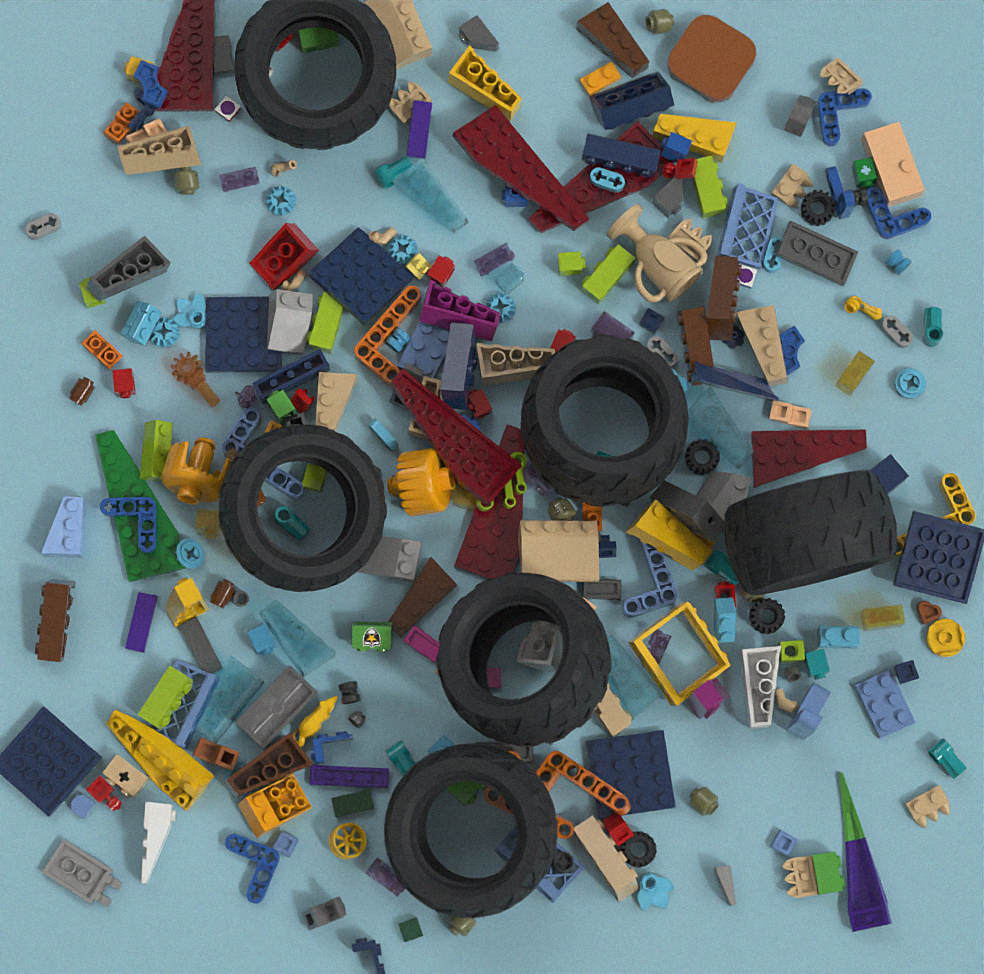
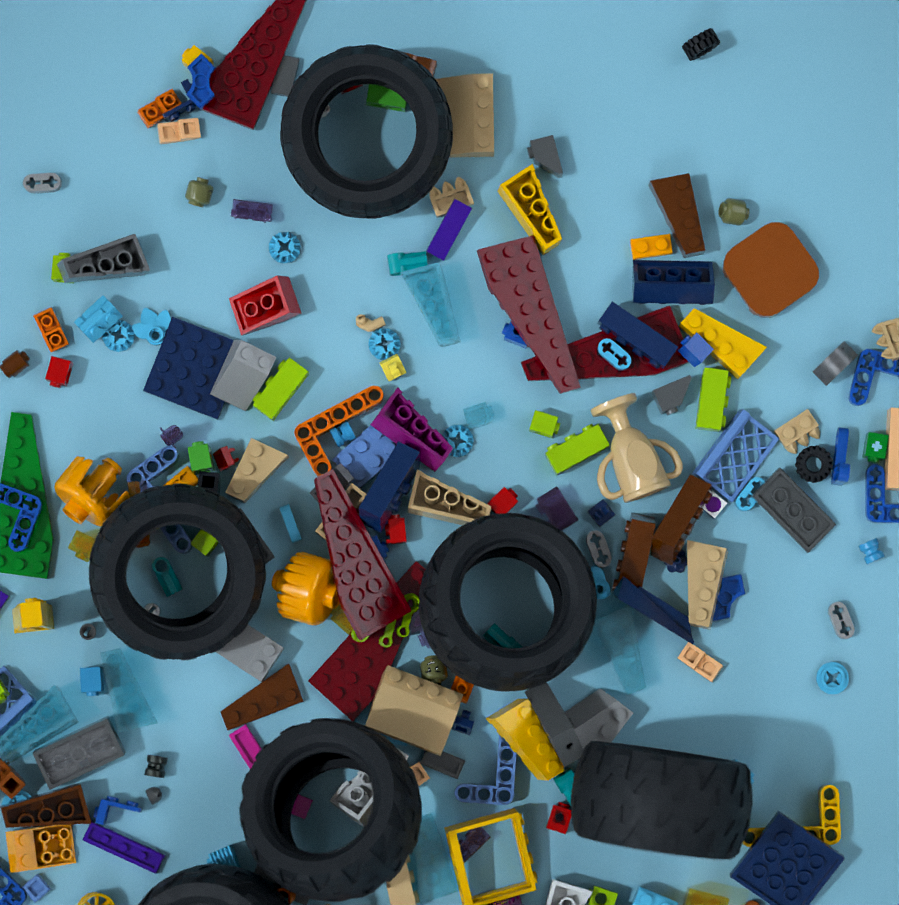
camera: 25 degrees right, 5 degrees up
(155, 449) = (62, 450): lime brick -> none
(160, 152) = (184, 154): tan wedge -> none
(195, 377) = (129, 394): clear orange gear -> none
(197, 553) = (64, 567): medium azure gear -> none
(201, 646) = (31, 662): dark grey tile -> none
(222, 593) = (72, 619): reddish brown brick -> none
(227, 108) = (269, 133): tile -> none
(280, 167) = (300, 214): tan arm -> none
(292, 375) = (223, 430): dark blue brick -> none
(296, 282) = (266, 336): tan arm -> none
(312, 723) = (110, 780): yellow animal -> none
(352, 803) = (116, 875): dark green tile -> none
(360, 276) = (331, 356): dark blue plate -> none
(372, 635) = (199, 719): bright green brick -> none
(400, 757) = (180, 849): teal piece -> none
(441, 270) = (413, 381): red brick -> none
(494, 259) = (473, 389): clear purple hinge -> none
(682, 230) = (669, 436): tan plate -> none
(684, 169) = (694, 375): red plate -> none
(706, 446) = (595, 682): black tyre -> none
(724, 620) = (548, 843): medium azure brick -> none
(759, 624) = (593, 867): black tyre -> none
(794, 451) = (683, 699): dark red wing -> none
(853, 304) = (807, 577): yellow piece -> none
(854, 373) = (780, 646): clear yellow brick -> none
(860, 197) = (858, 469): pearl dark grey wheel -> none
(890, 473) = (768, 763): dark blue head -> none
(933, 325) = (880, 628): teal piece -> none

